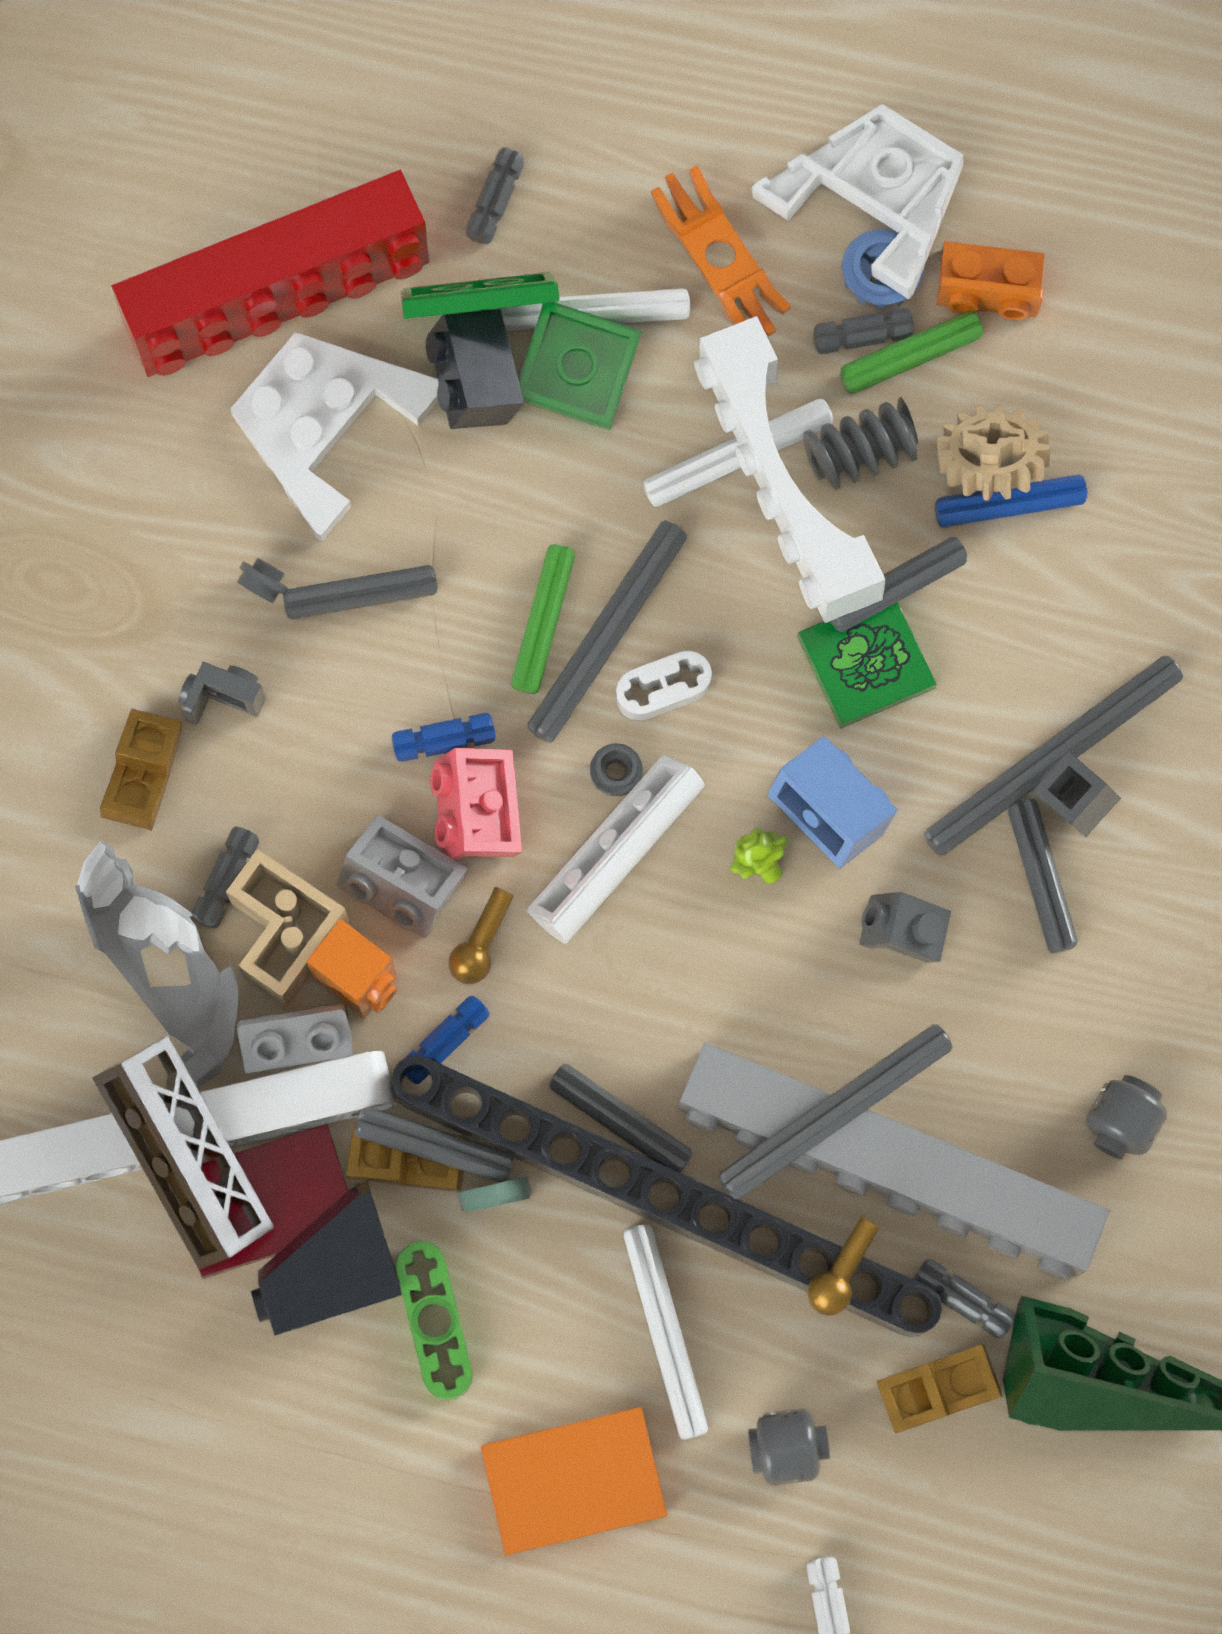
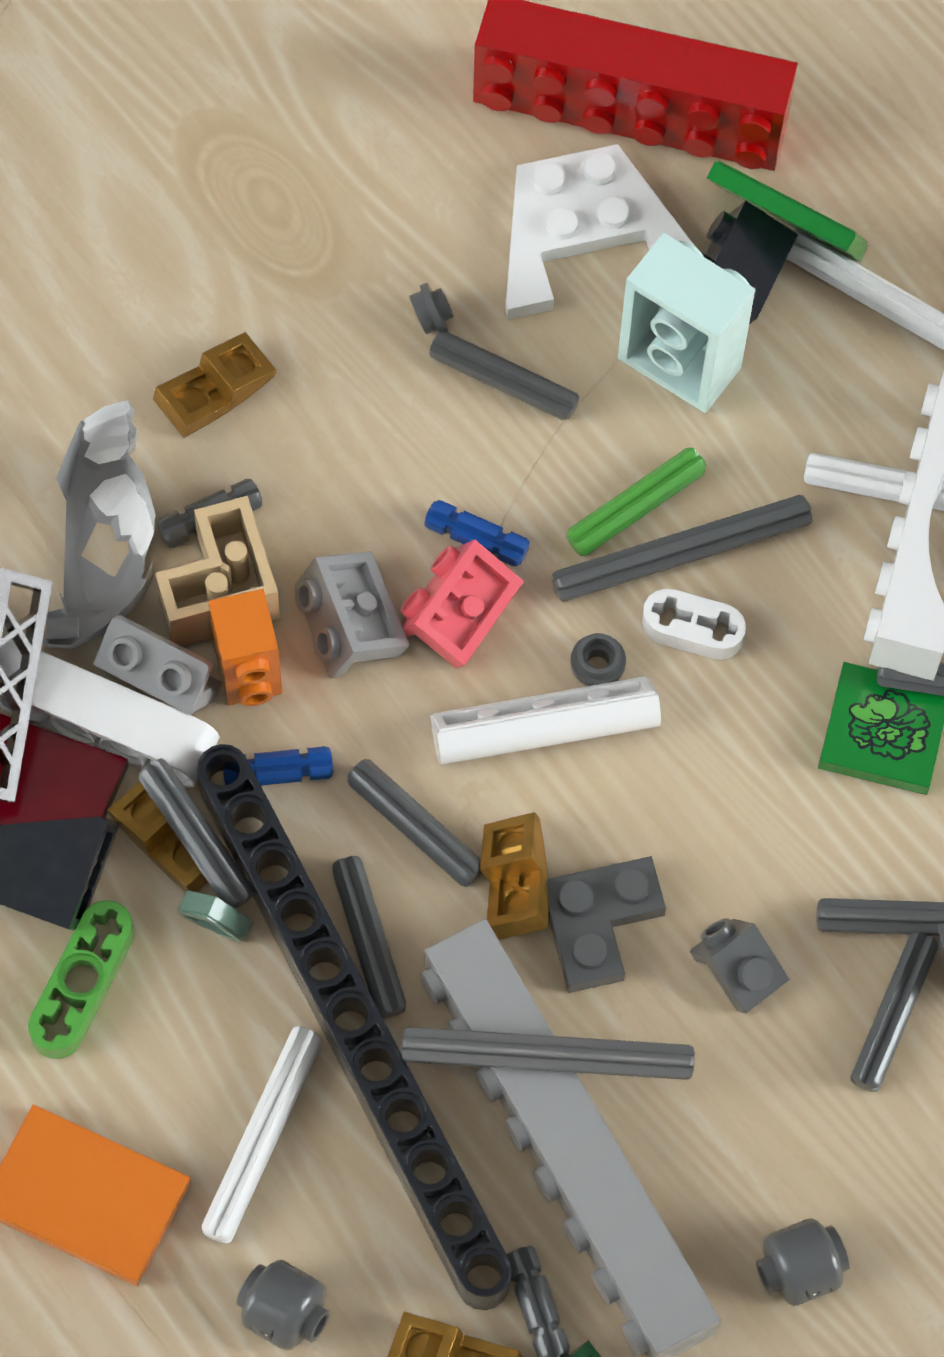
camera: 40 degrees right, 10 degrees down
(231, 687) = (323, 356): dark grey bracket -> none
(470, 960) = (352, 722): pearl gold bar -> none
(480, 449) = (685, 321): none -> light aqua brick
(495, 195) = (870, 154): dark grey axle -> none
(578, 364) = (829, 325): green tile -> none
(582, 1003) = (415, 822): none -> dark grey axle
(693, 986) = (517, 873): none -> pearl gold slope
(759, 855) = (660, 811): lime plant -> none
(761, 972) = (586, 909): none -> dark grey plate
(830, 1290) = (422, 1197): pearl gold bar -> none
(832, 801) = (757, 812): medium blue brick -> none

